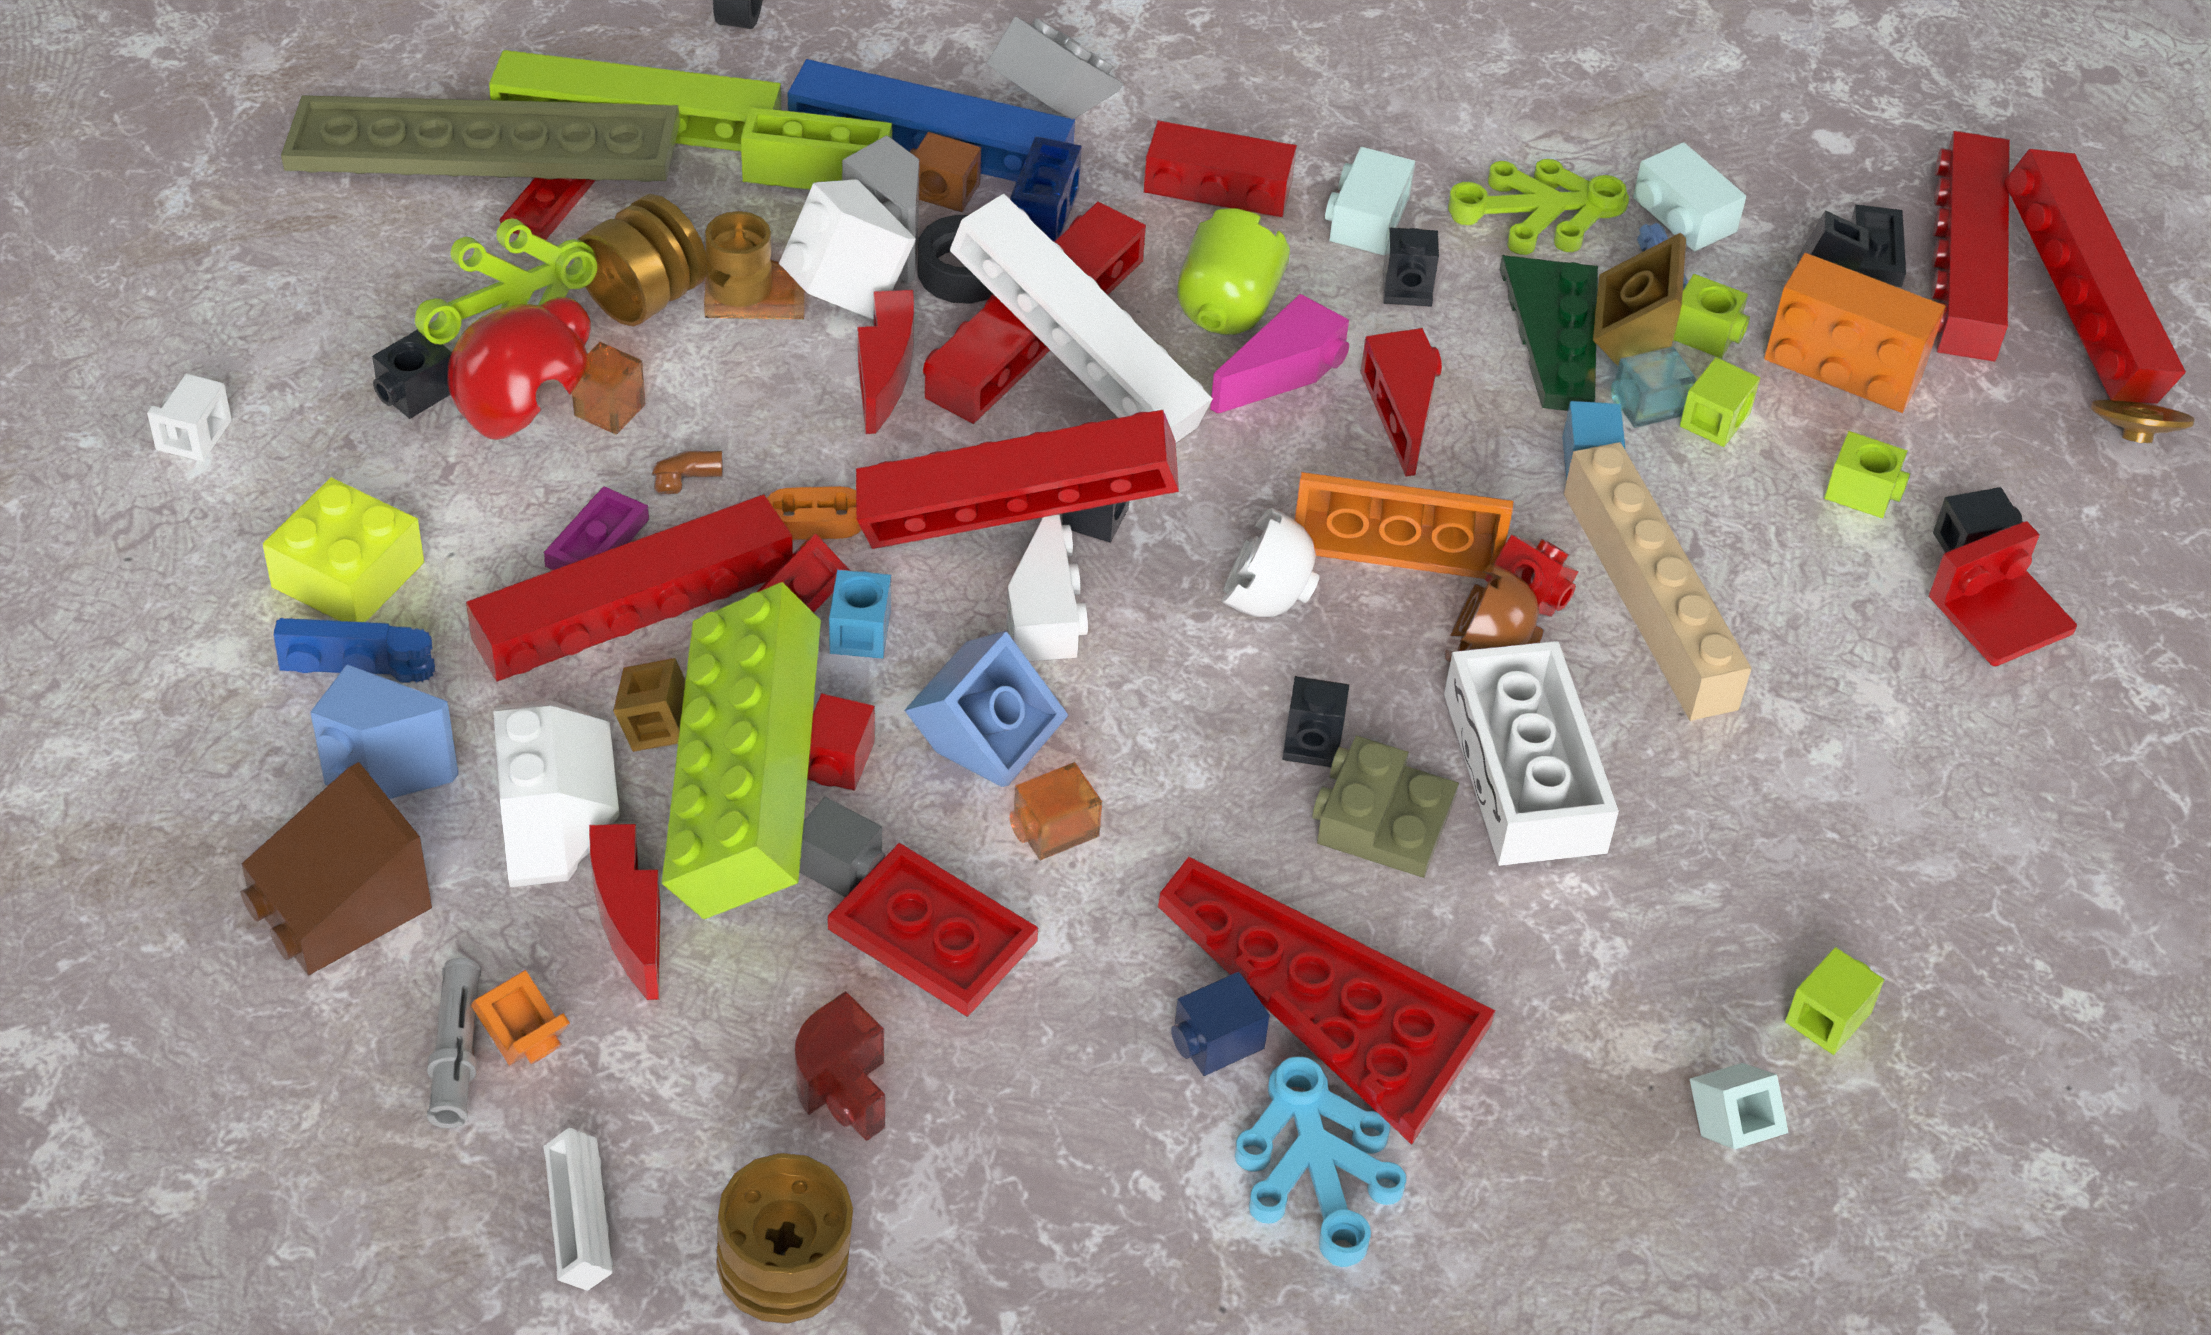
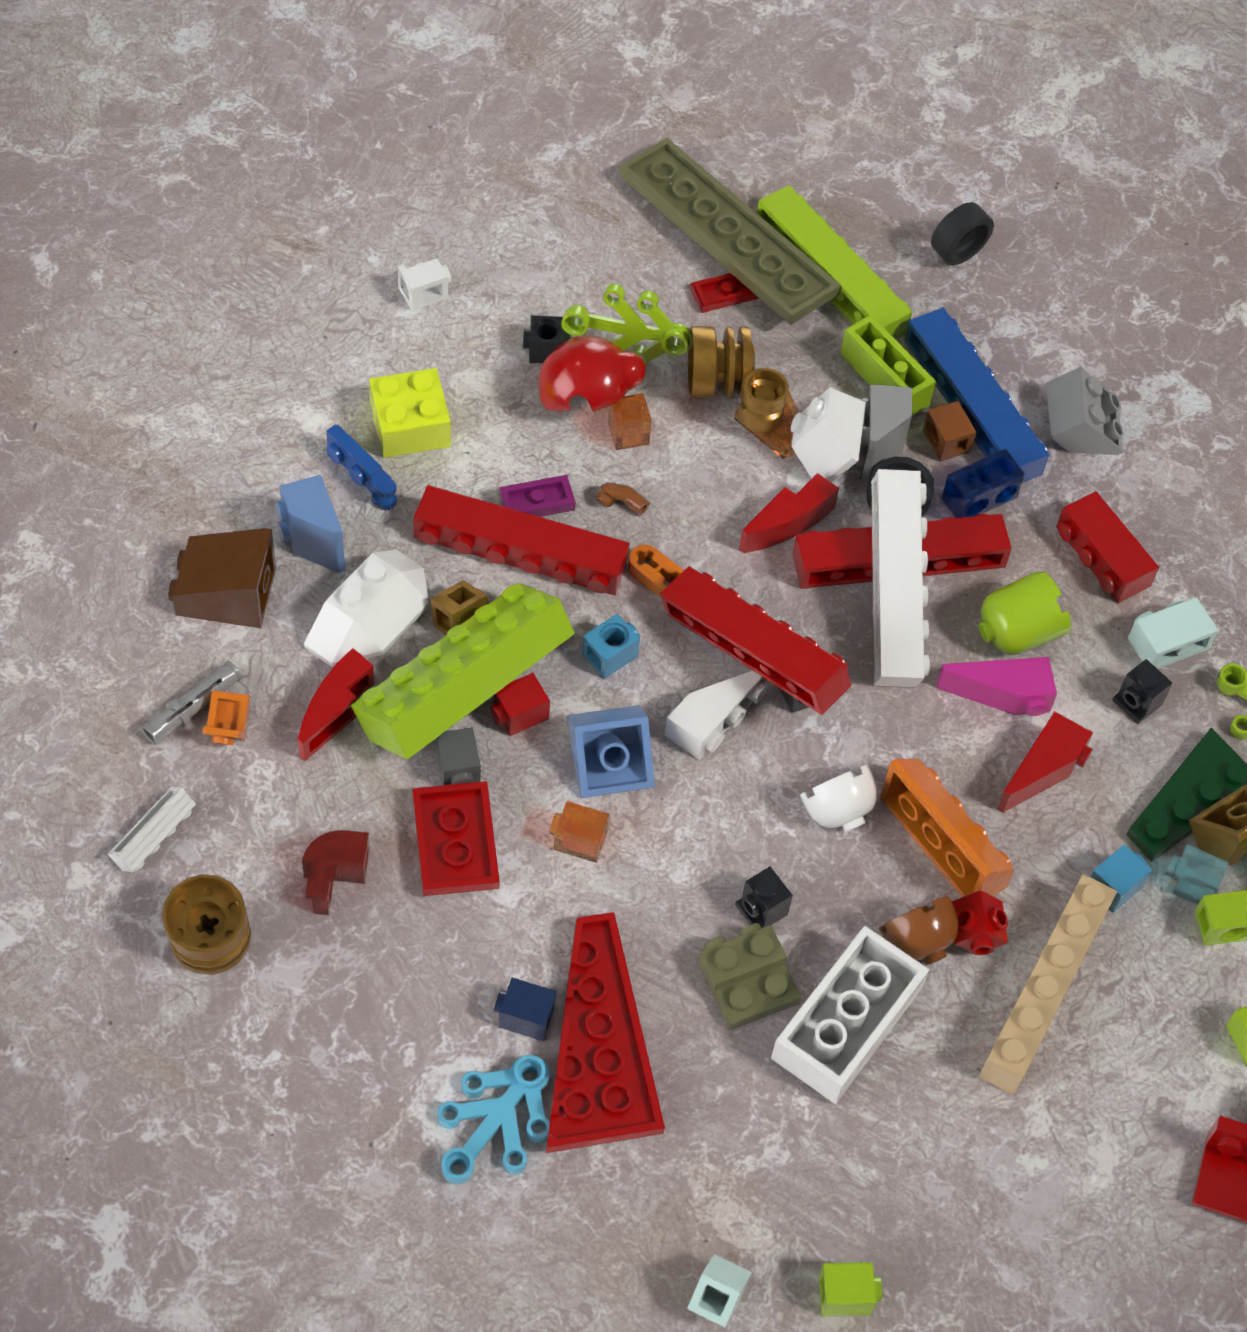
camera: 45 degrees right, 10 degrees up
(809, 572) = (597, 605): red plate -> none

